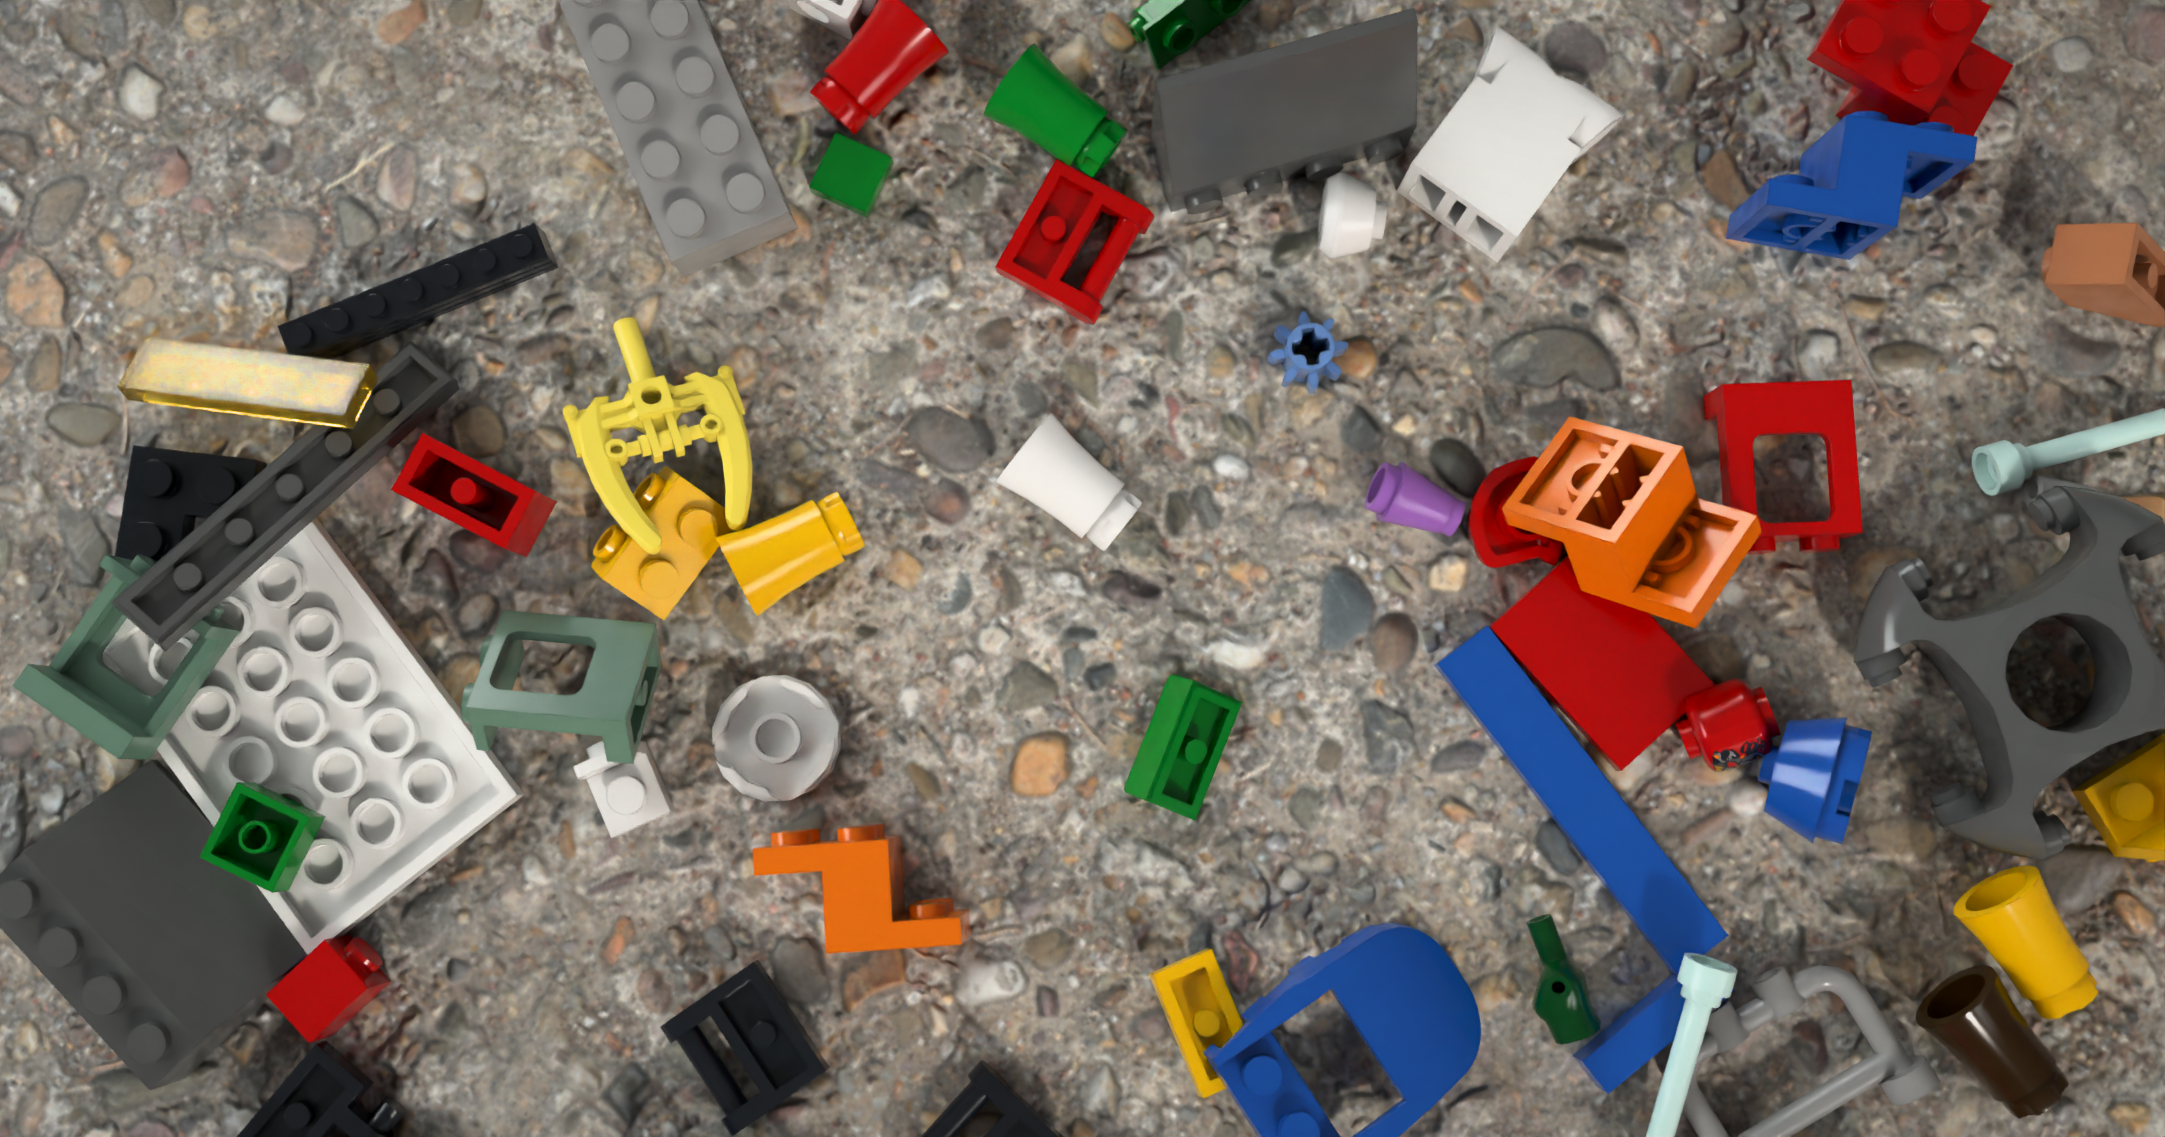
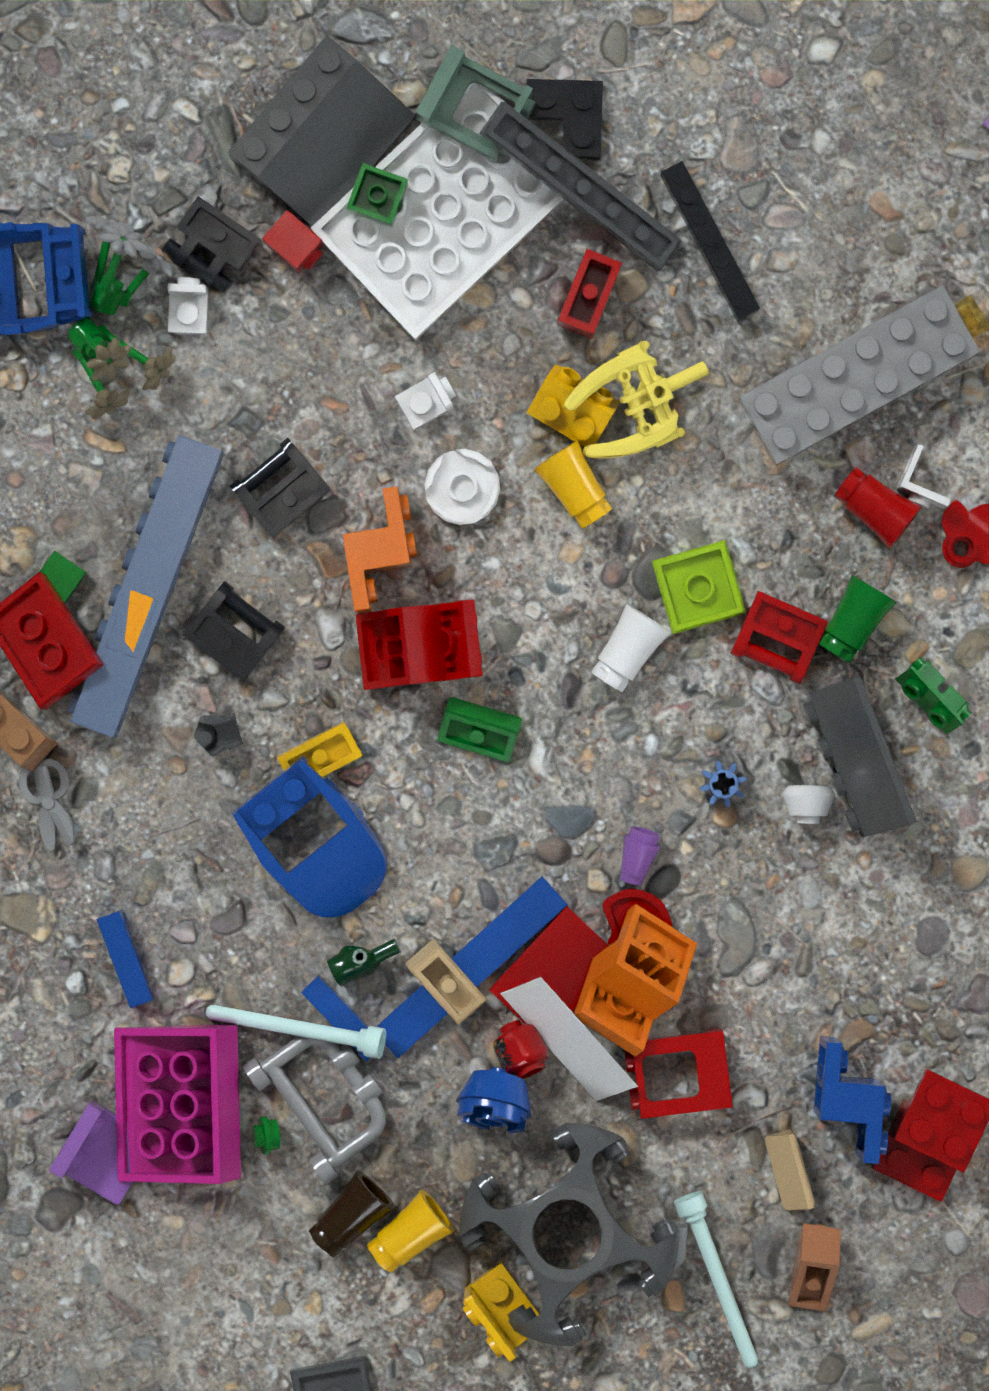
camera: 80 degrees right, 5 degrees up
(248, 382) = (645, 148): clear yellow tile -> none
(613, 695) = (482, 392): sand green window -> none
(851, 175) = (809, 496): green tile -> none
(980, 365) = (698, 587): none -> lime tile
(1031, 834) = (419, 644): none -> red bracket
(1505, 146) = (861, 894): white piece -> none
(1604, 843) = (445, 981): none -> tan slope
(1722, 641) = (569, 1039): none -> white sticker
(1950, 300) = (789, 1171): none -> tan slope

